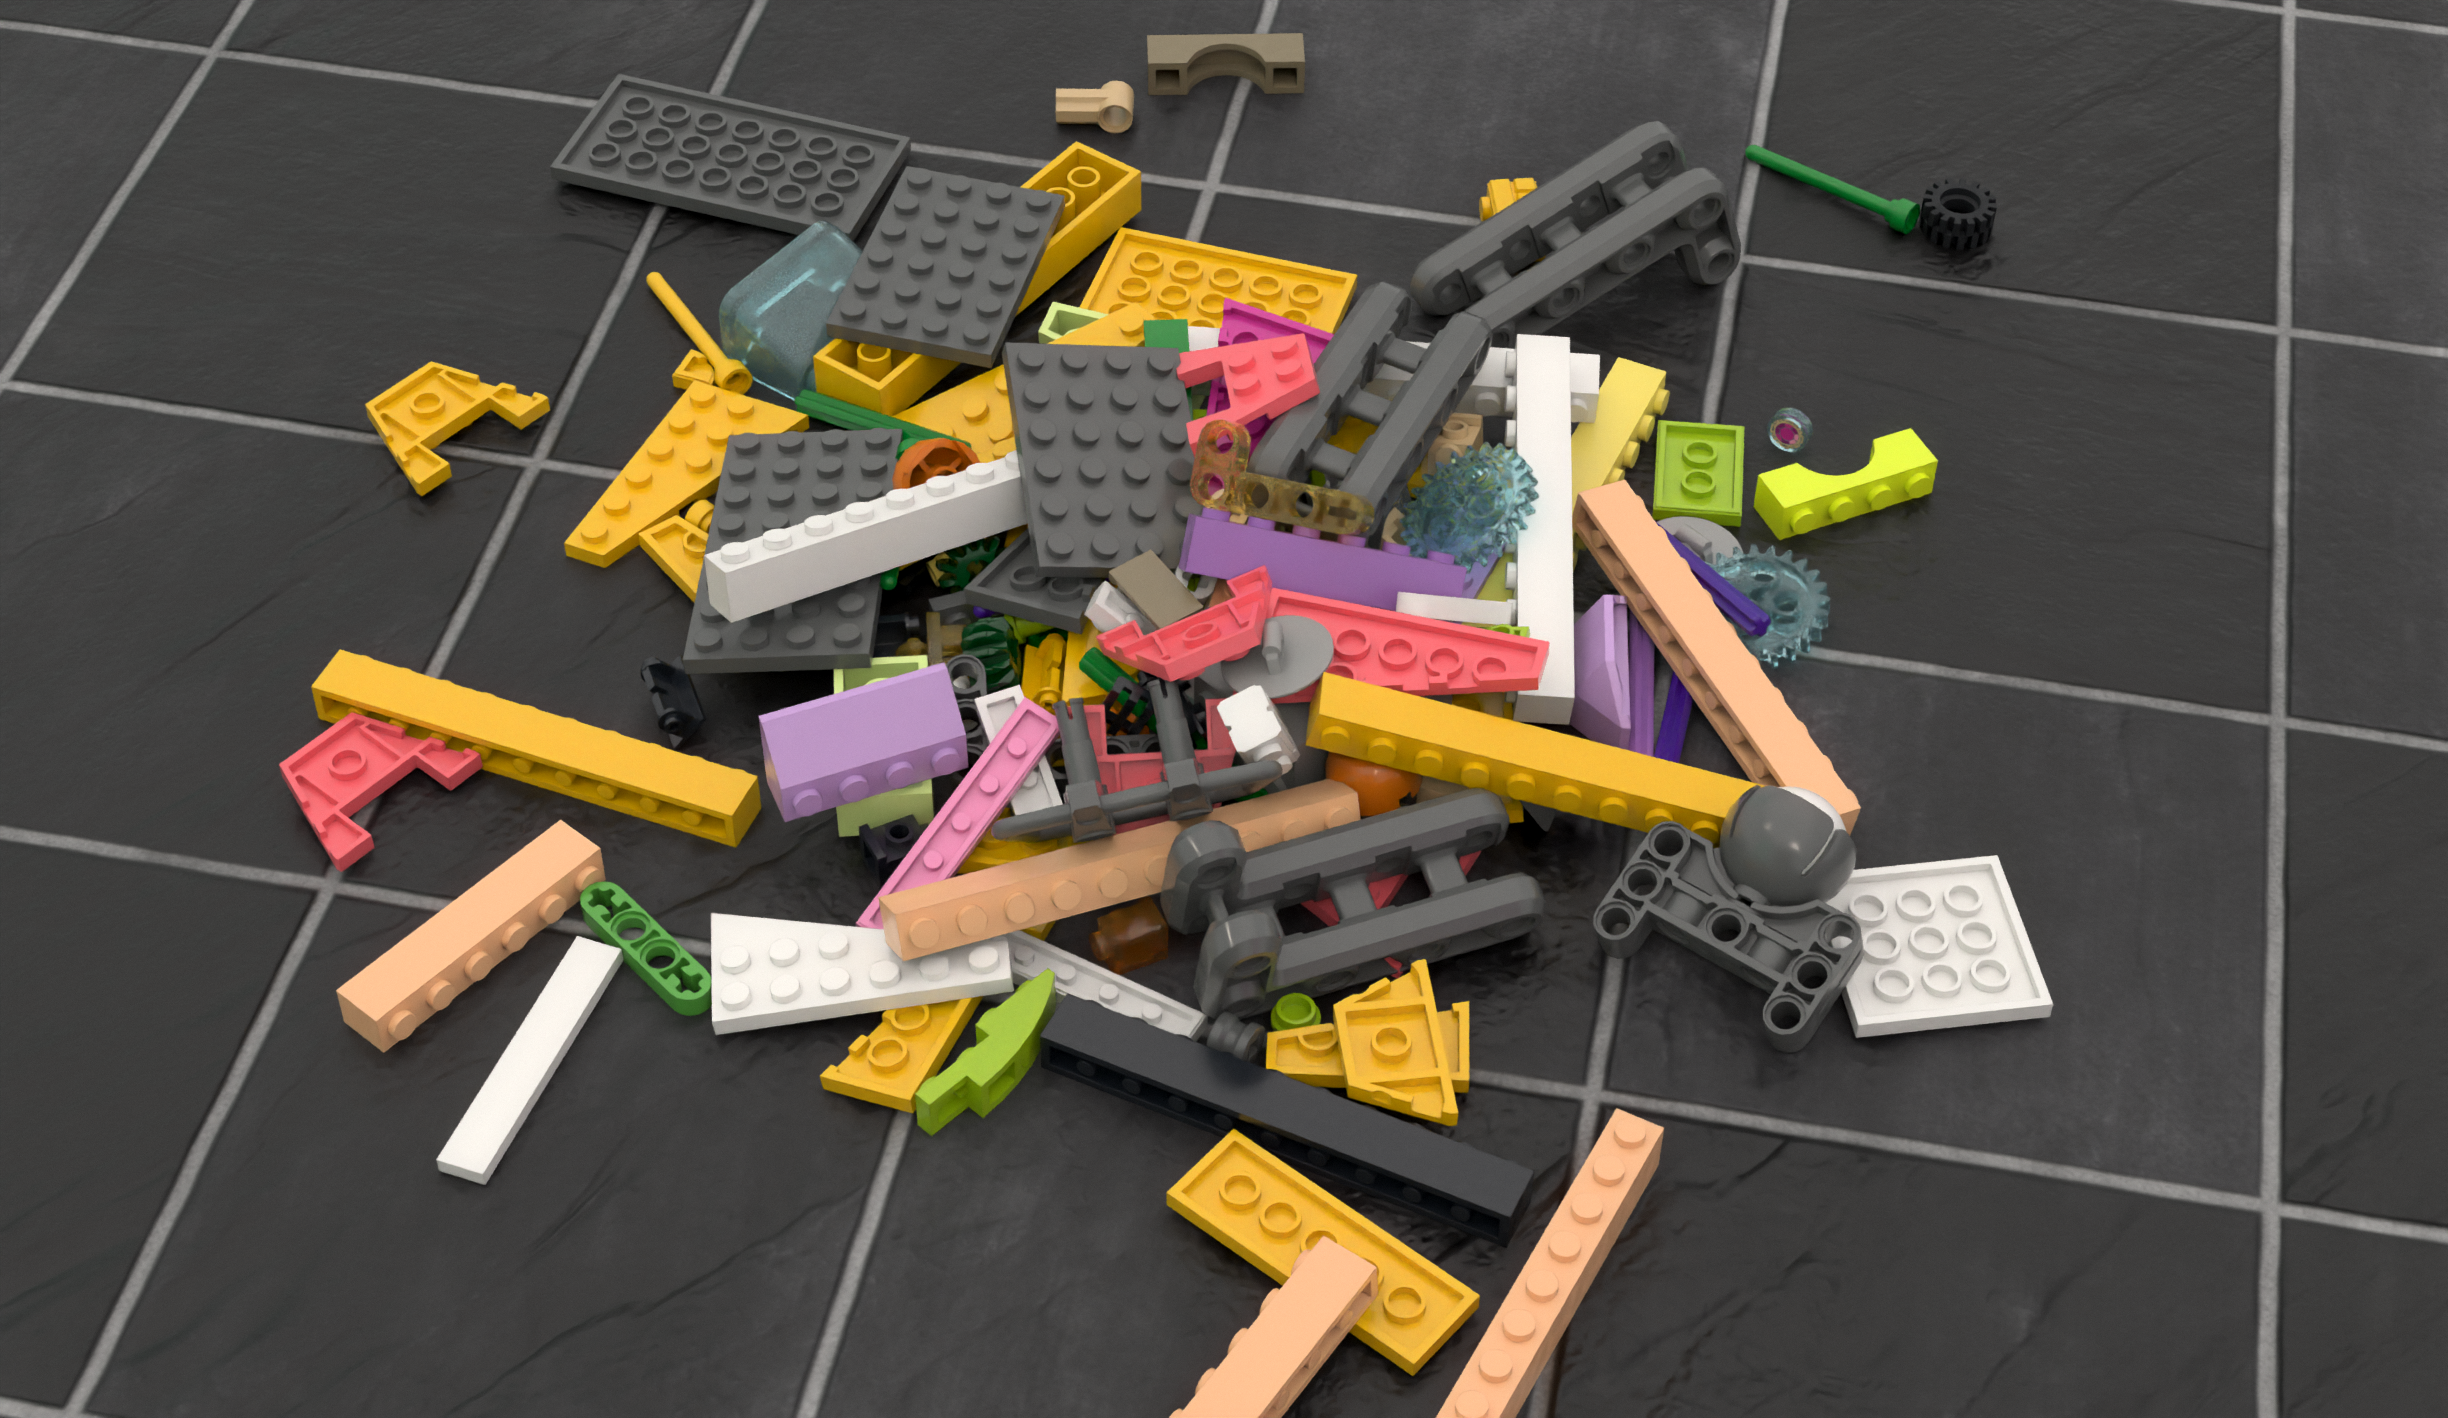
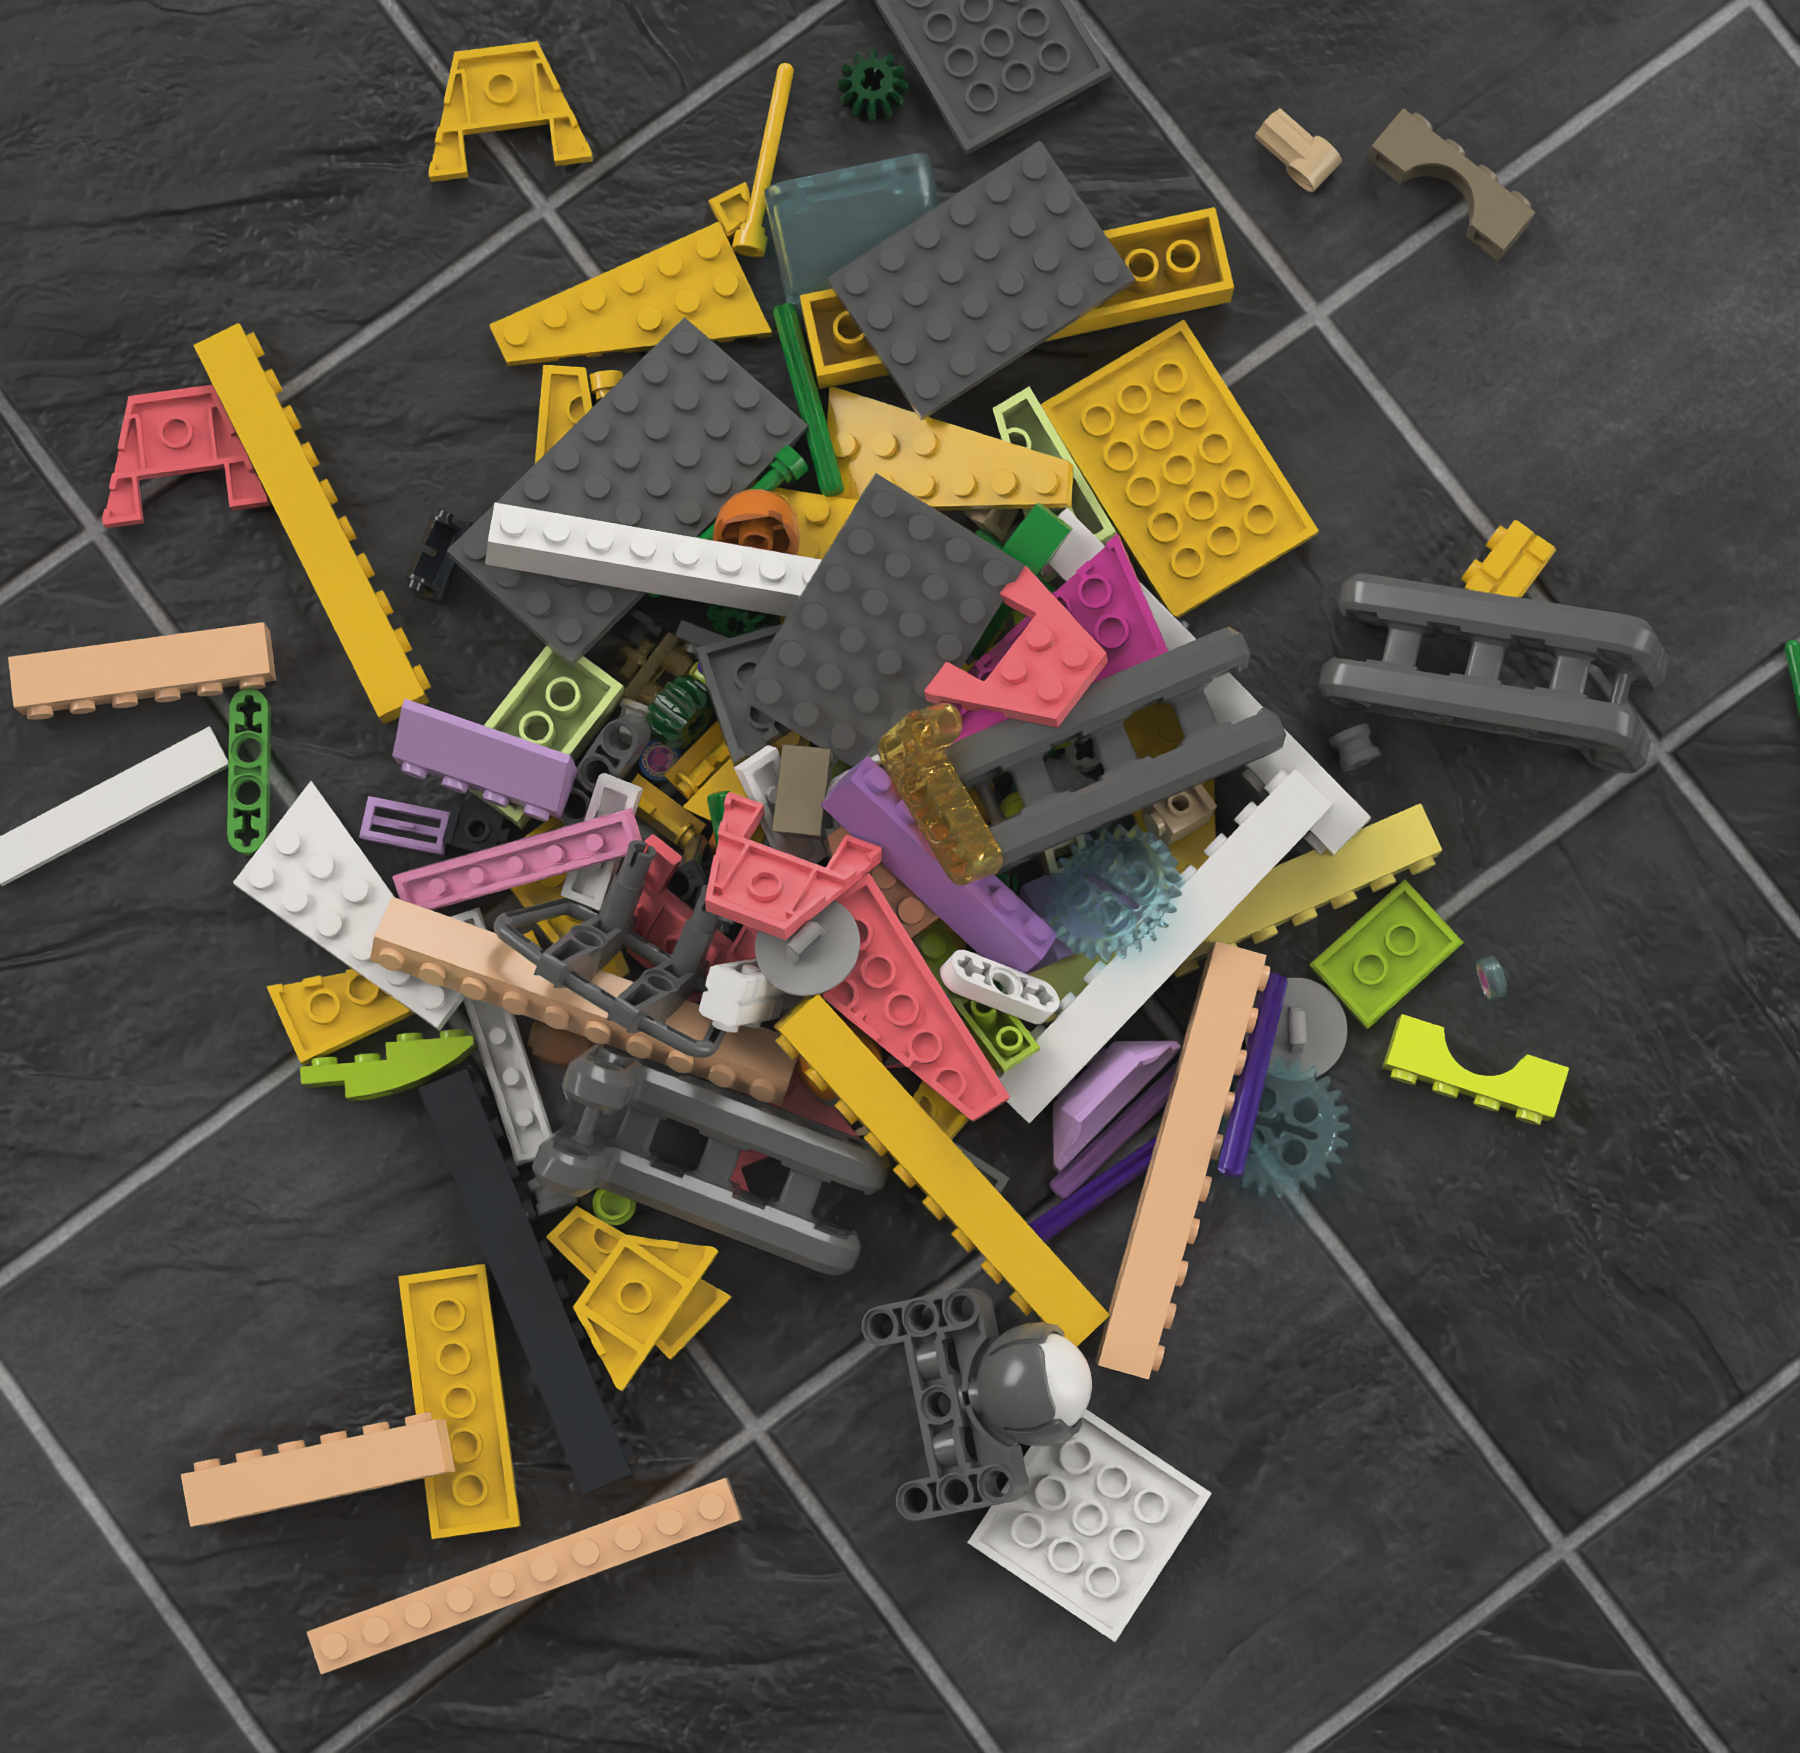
camera: 45 degrees right, 35 degrees up
(735, 243) = (872, 70): none -> dark green gear
(833, 899) = (401, 842): none -> lavender tile

